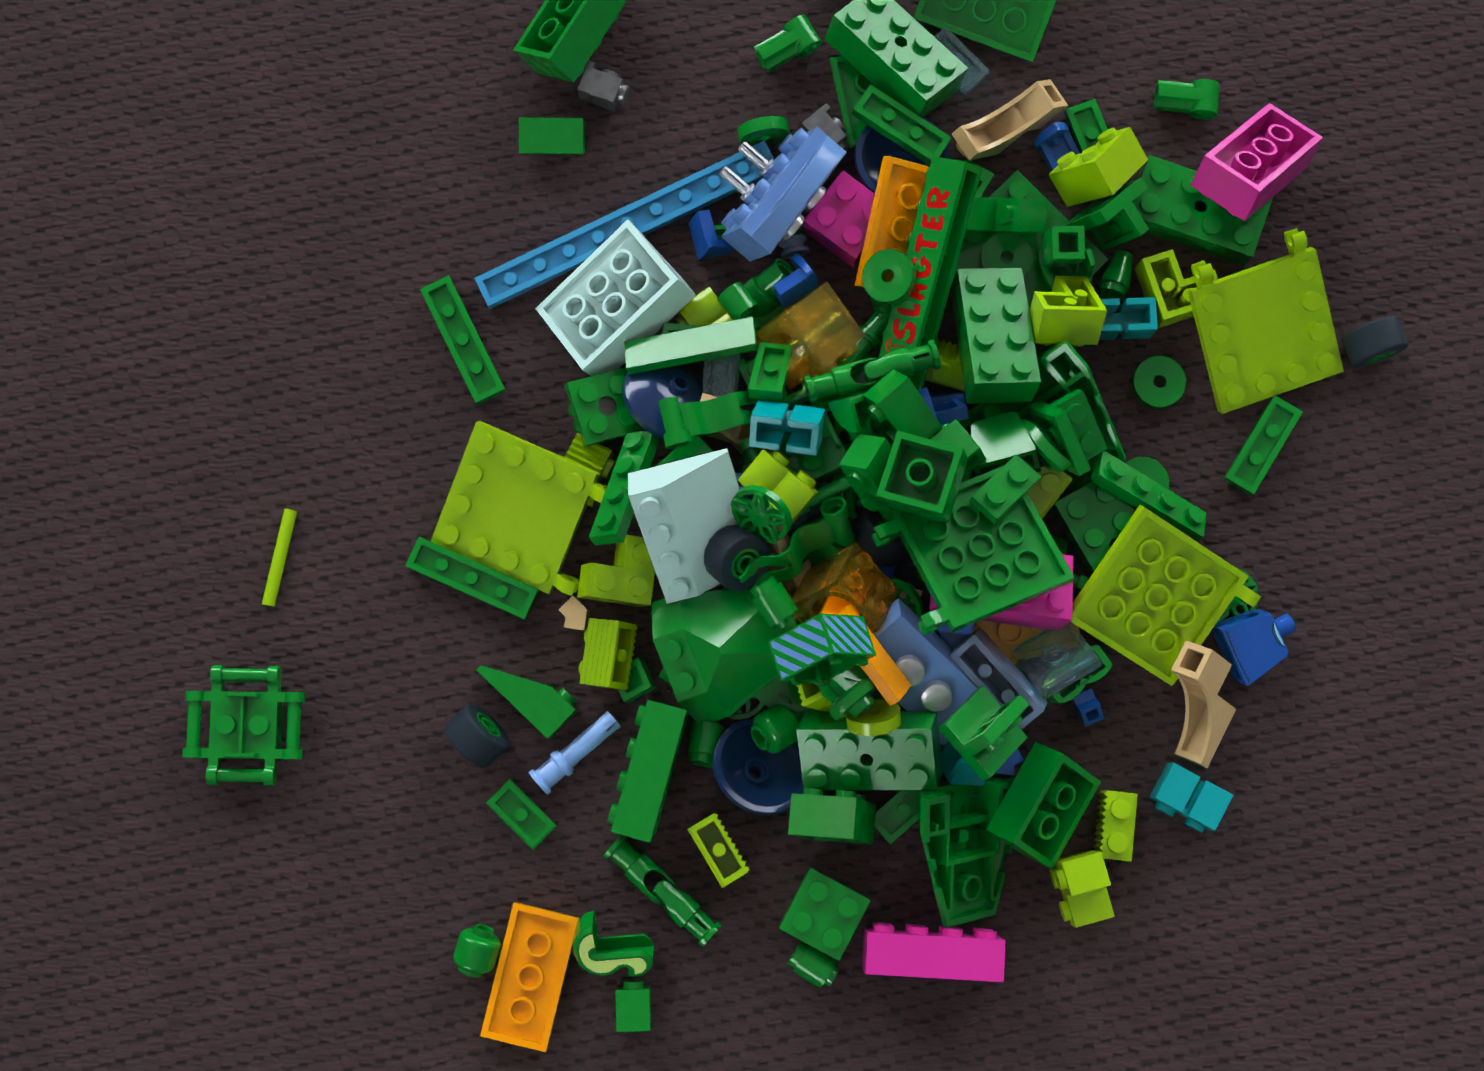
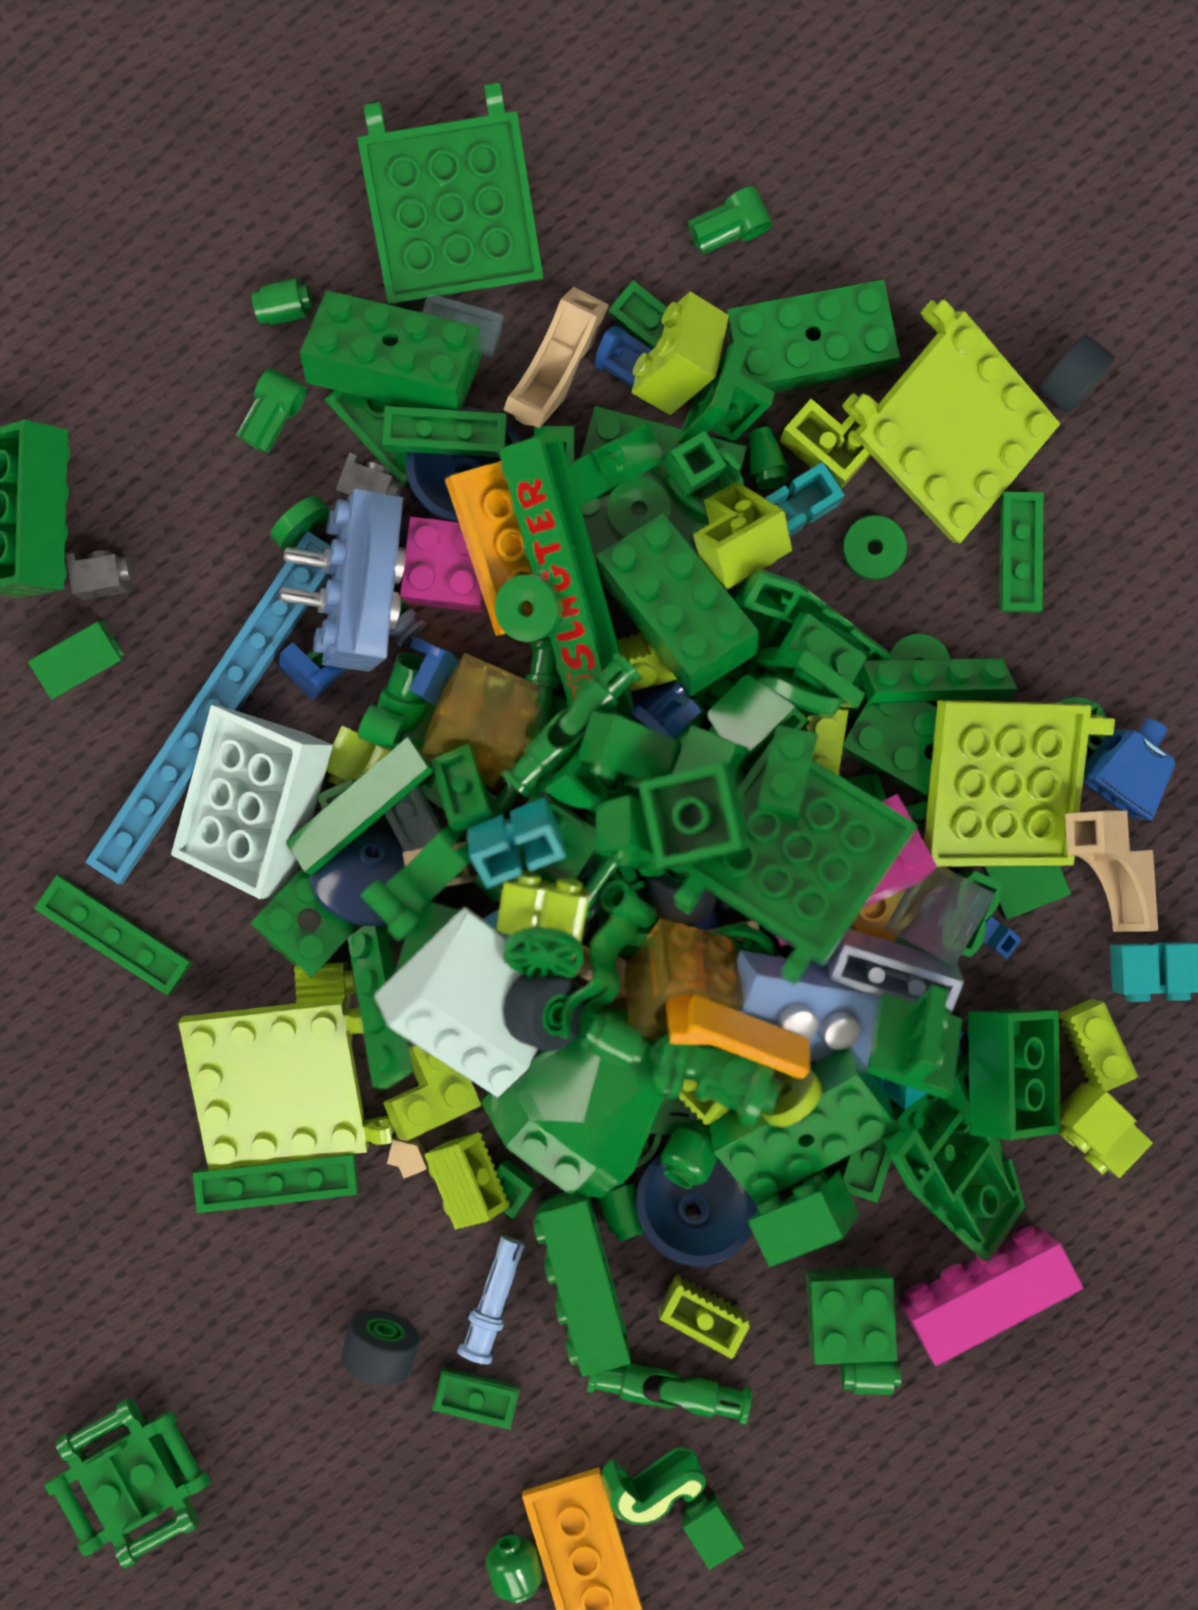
camera: 30 degrees left, 5 degrees up
(279, 557) = (59, 1280): lime bar -> none
(535, 701) = (421, 1273): green slope -> none
(822, 648) = (698, 1074): green container -> none
(1130, 683) = (1028, 887): none -> green piece
(1256, 161) = (846, 252): dark pink brick -> none

